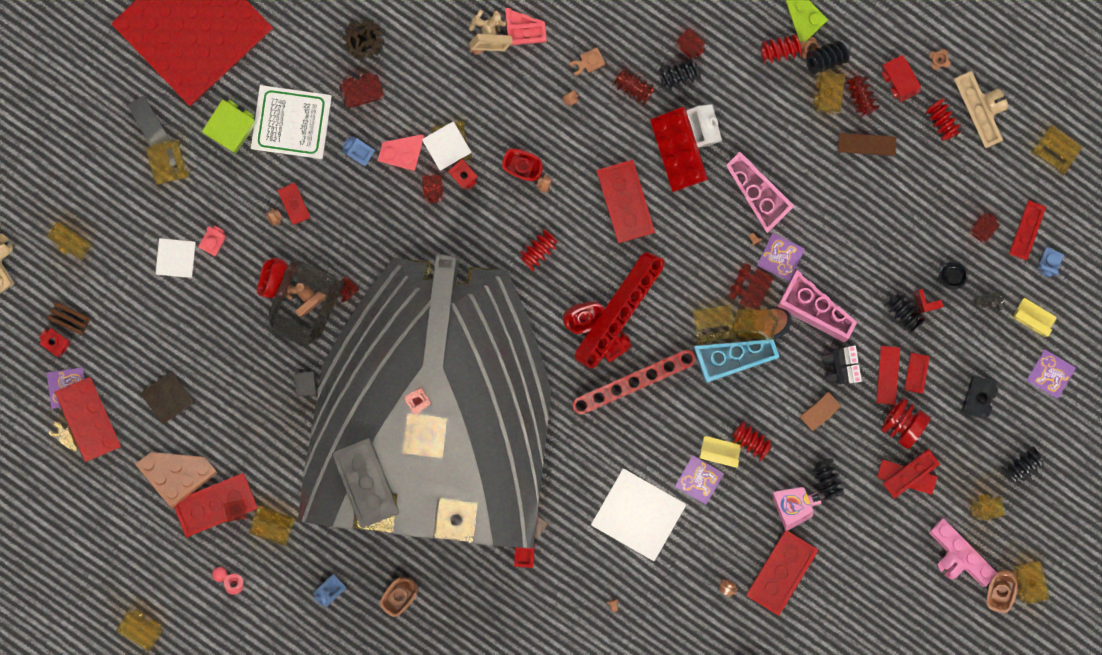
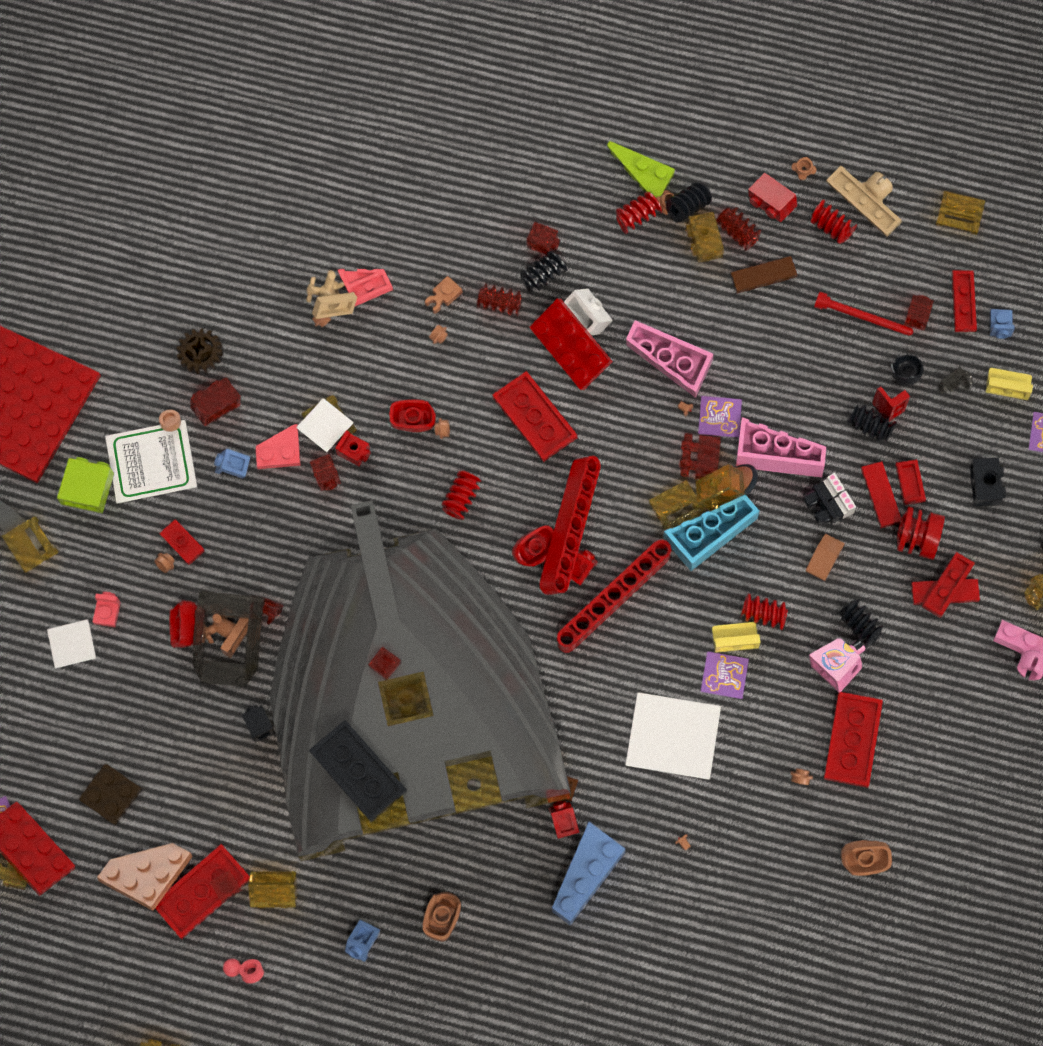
camera: 10 degrees left, 15 degrees down
(318, 92) = (170, 420): none -> nougat tile
(530, 600) = (588, 870): none -> medium blue wedge
(908, 188) = (824, 301): none -> red piece

